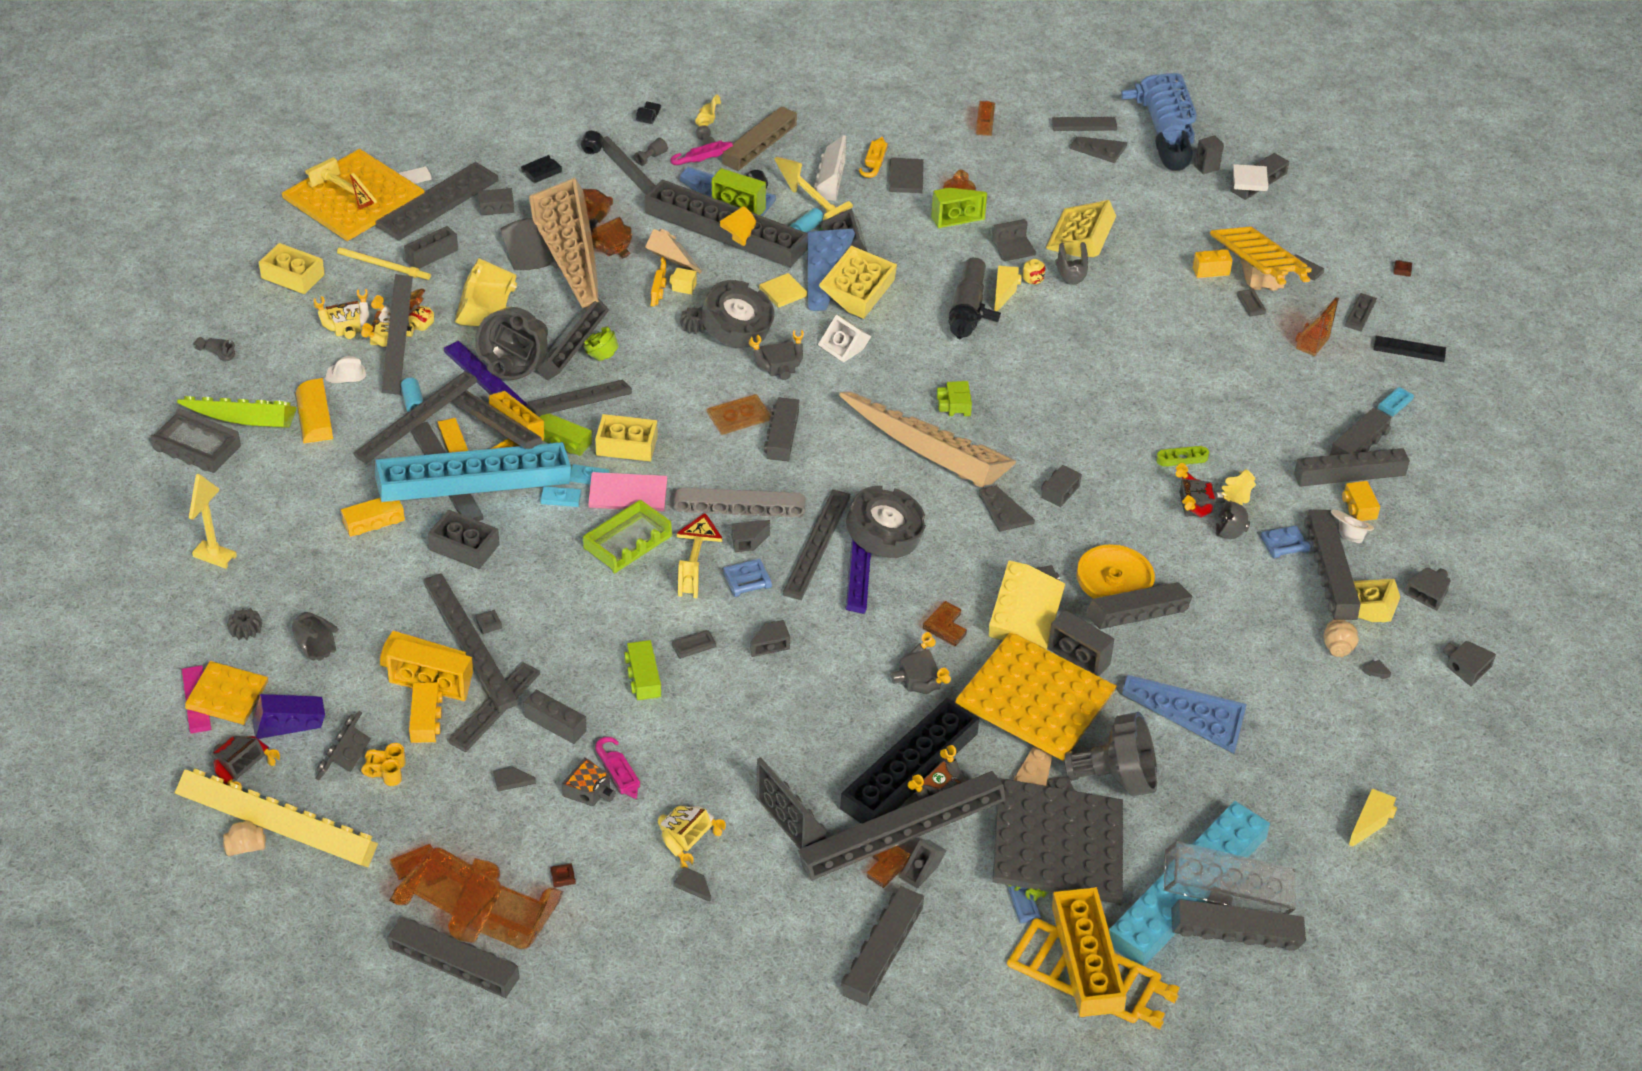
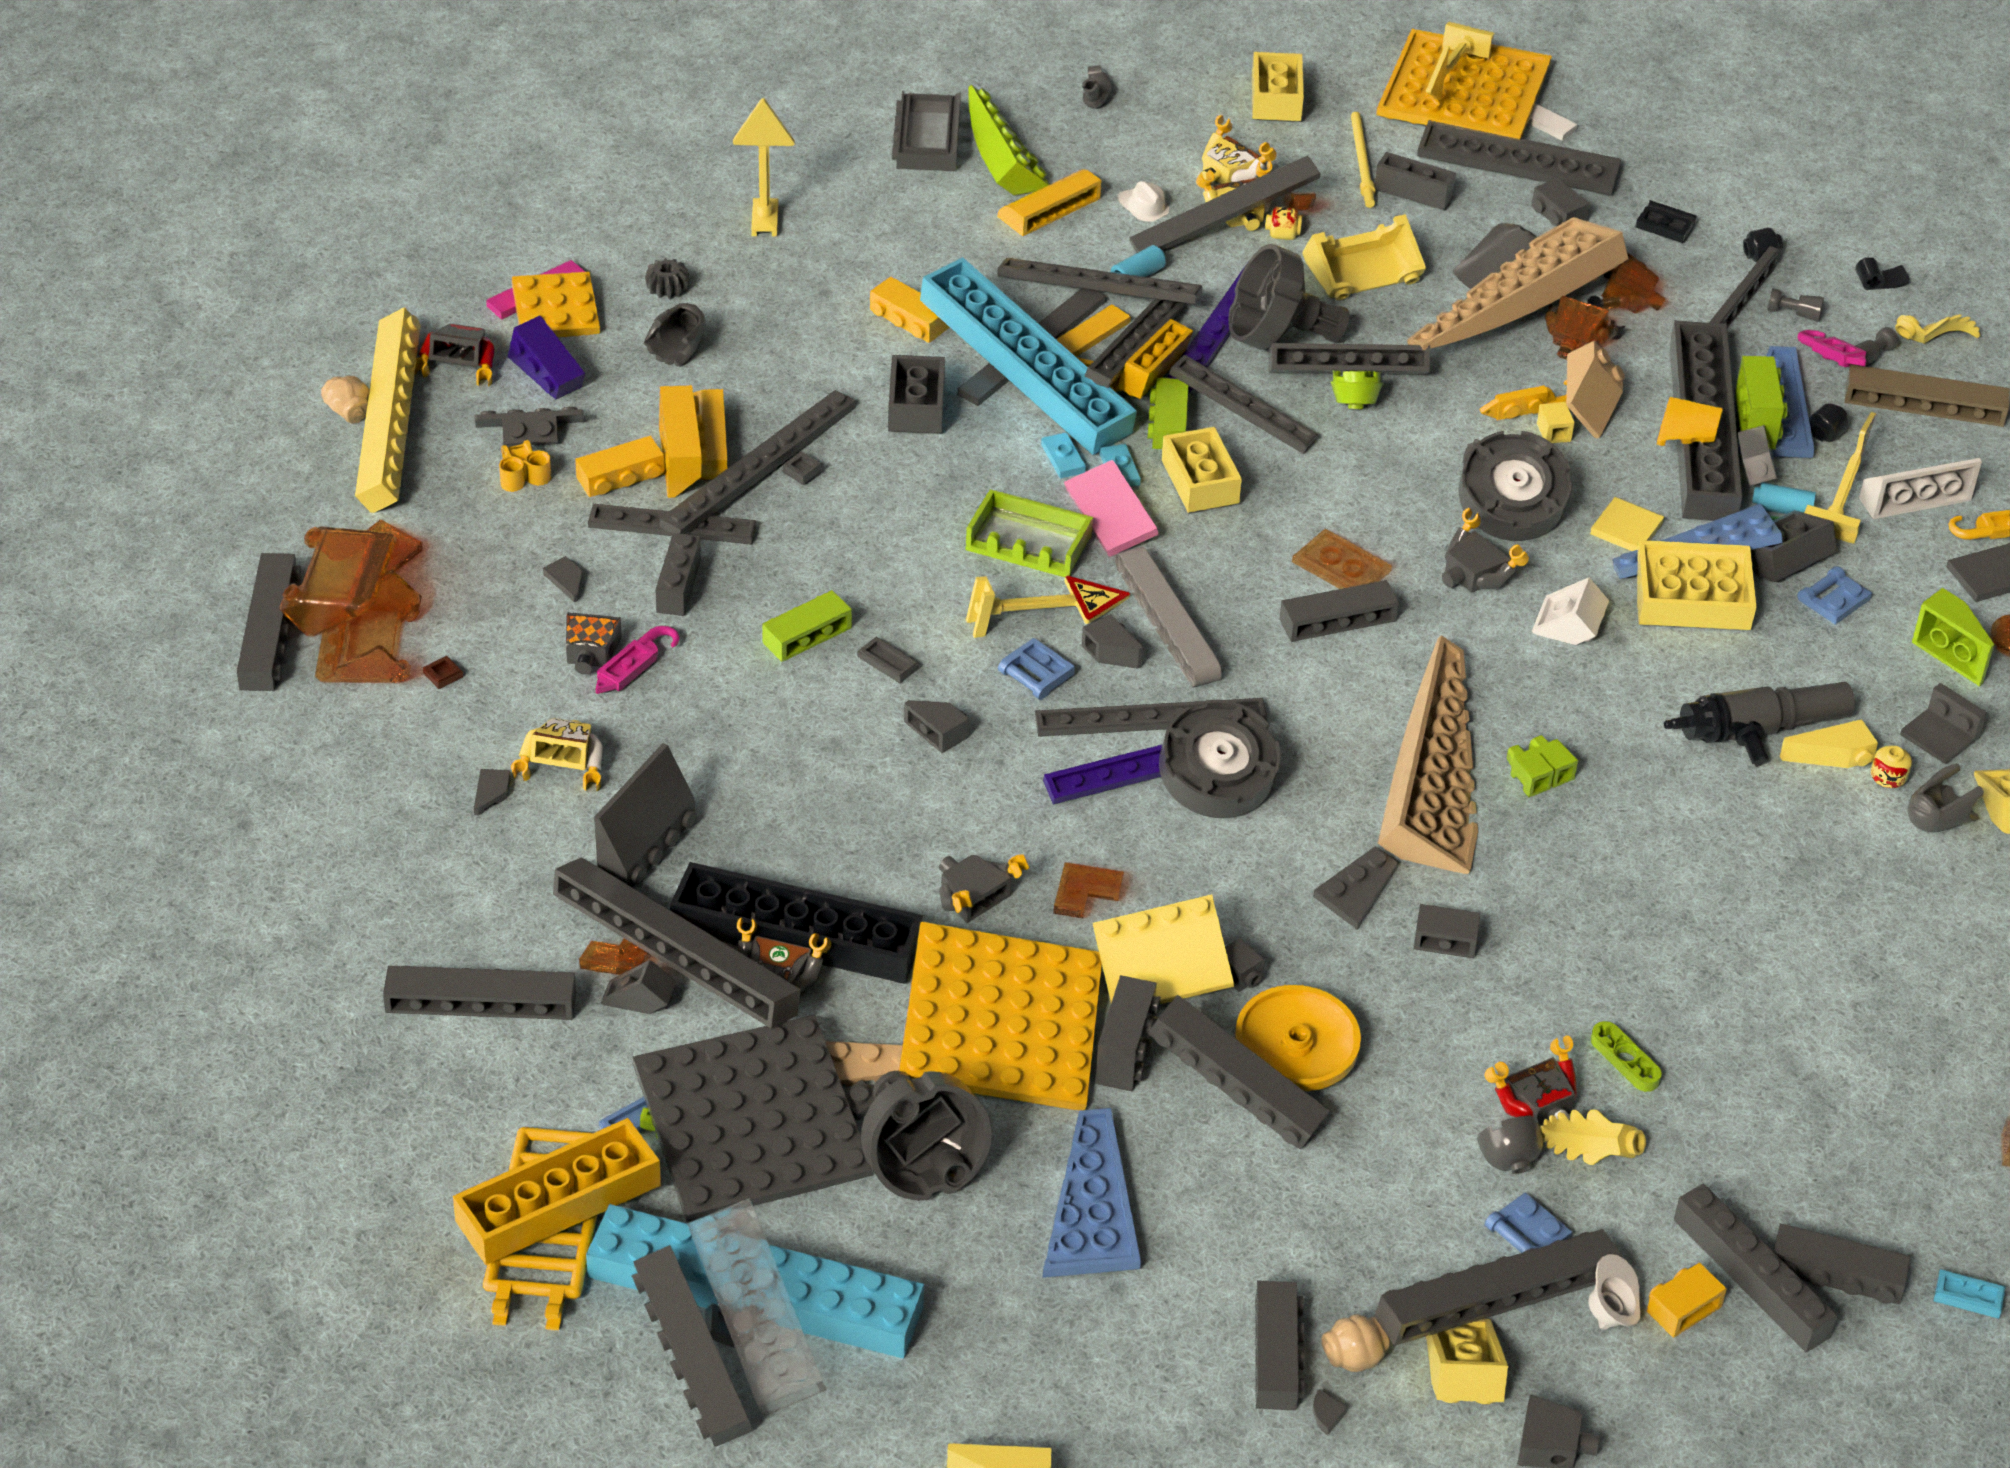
camera: 65 degrees right, 0 degrees up
(775, 212) = (1757, 455): none -> dark grey slope
(892, 235) = (1838, 603): none -> medium blue plate
(1328, 670) = (1277, 1346): none -> dark grey brick

